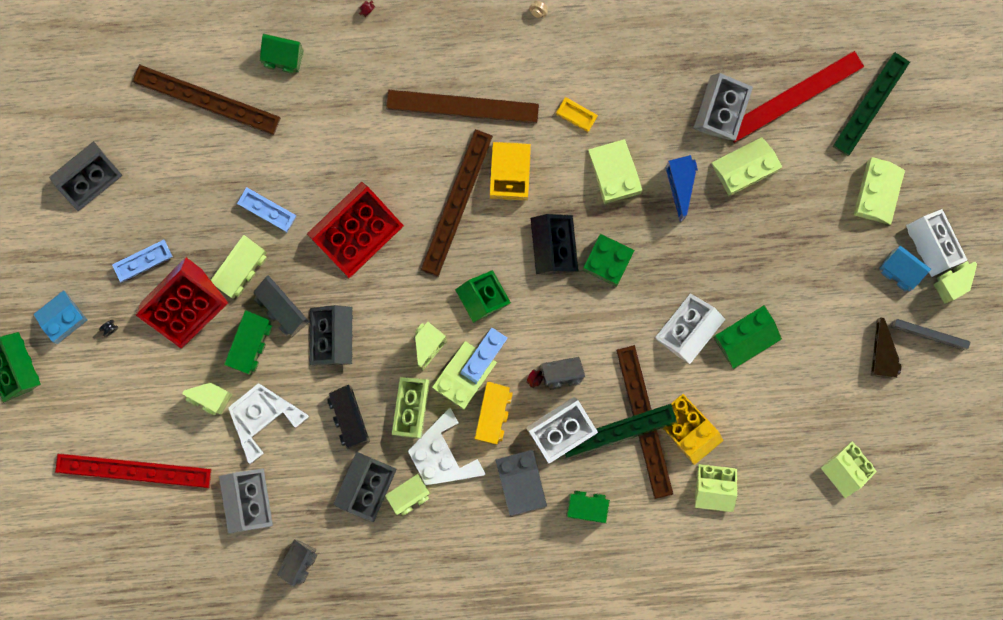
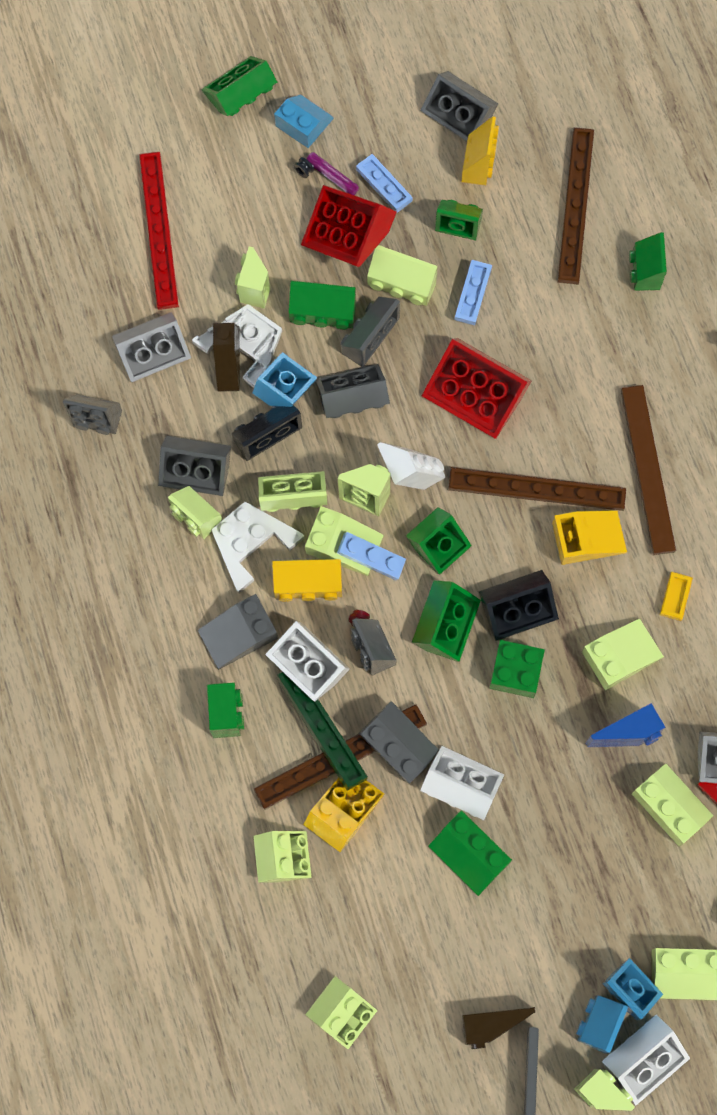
camera: 80 degrees right, 10 degrees down
(120, 304) = (332, 174): none -> magenta axle
(140, 170) = (480, 153): none -> yellow slope
(195, 204) = (458, 219): none -> green slope
(274, 436) = (227, 356): none -> dark brown slope
(313, 392) = (283, 382): none -> dark azure slope
(415, 302) = (411, 467): none -> white slope
(553, 307) = (446, 620): none -> green slope
(647, 371) = (399, 742): none -> dark grey slope
(884, 237) = (633, 989): none -> dark azure slope

